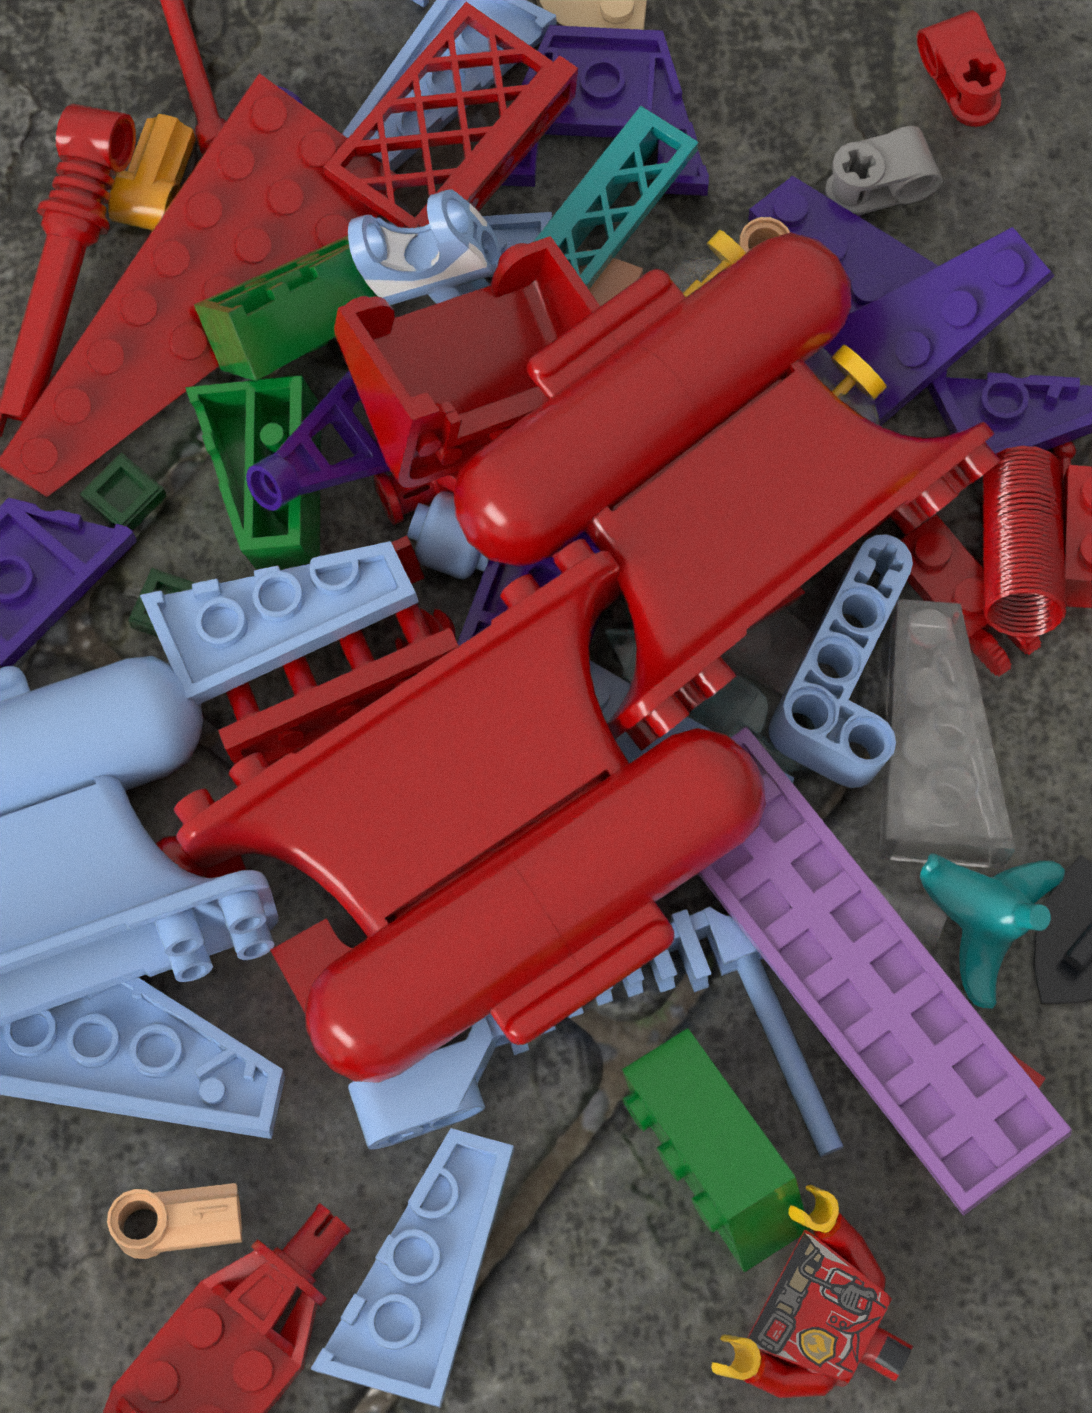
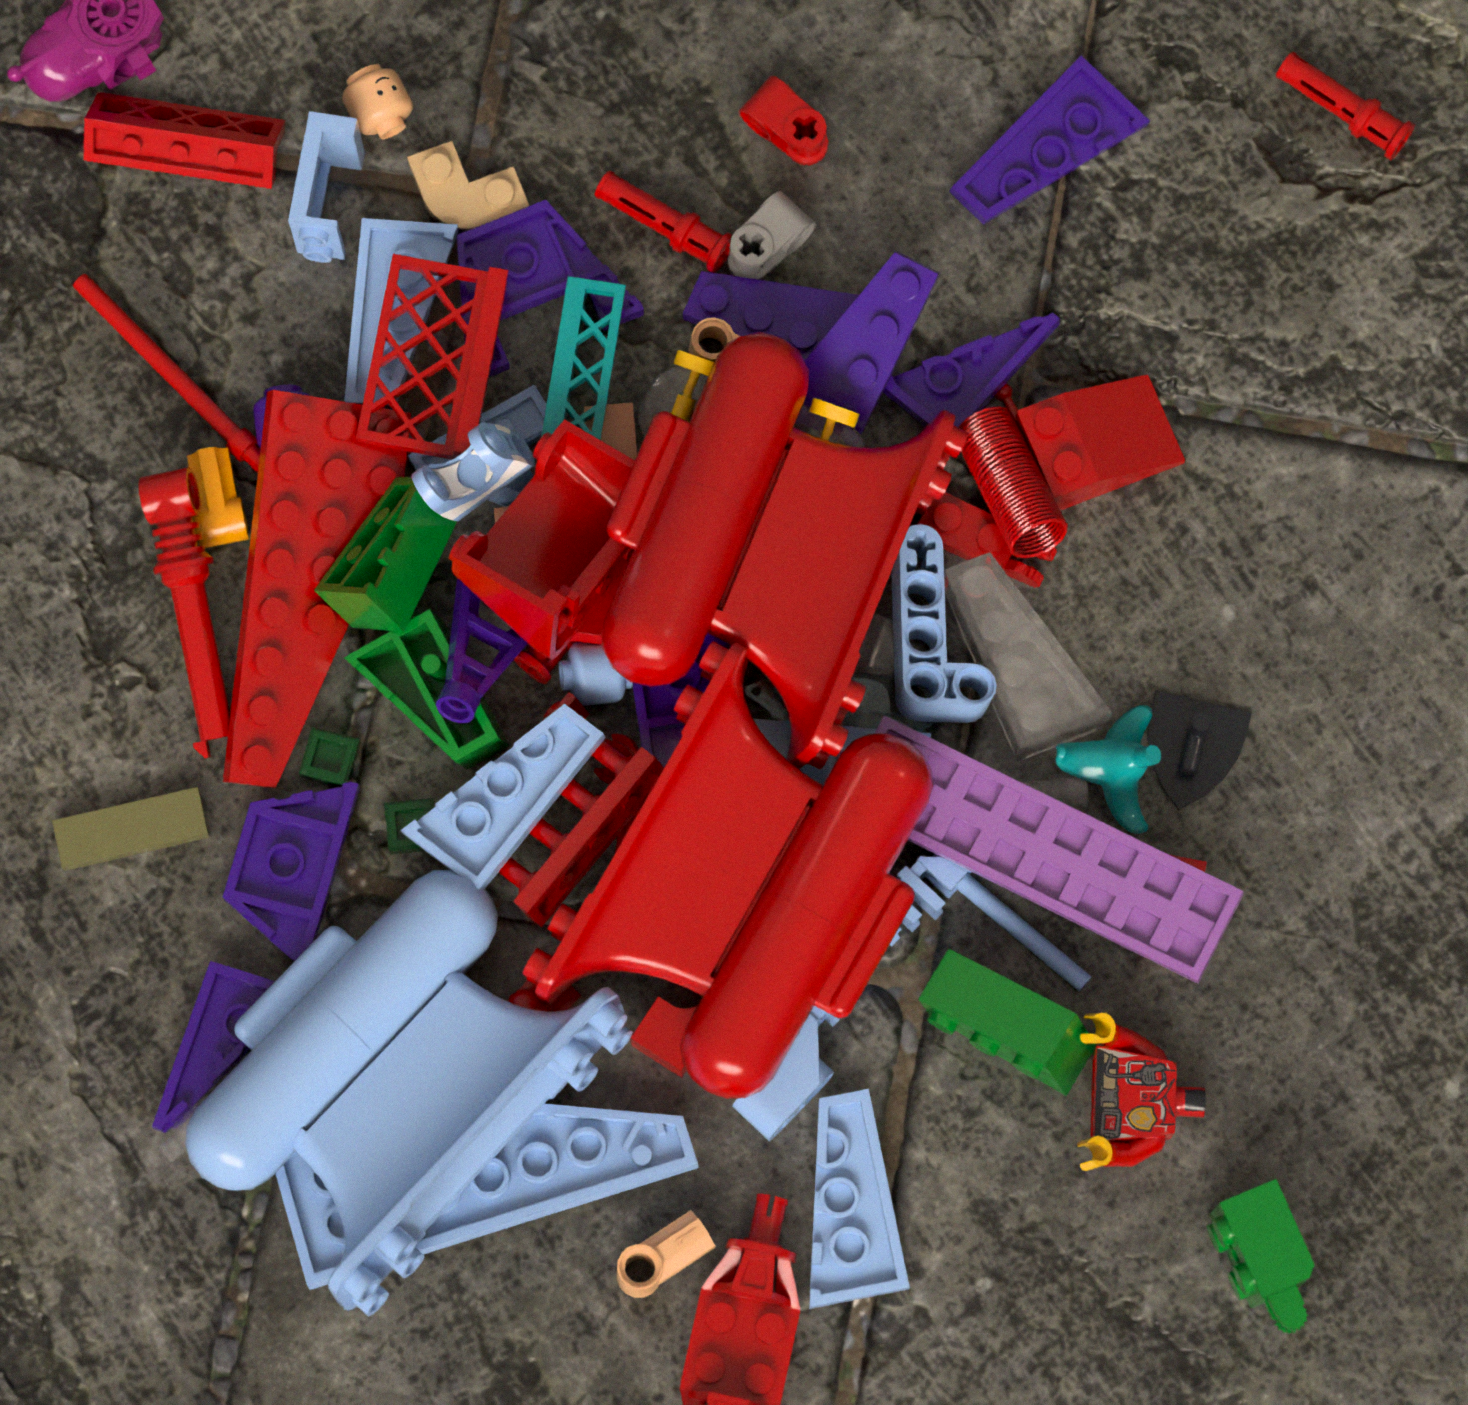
camera: 30 degrees left, 5 degrees up
(794, 126) = (683, 230): none -> red pin

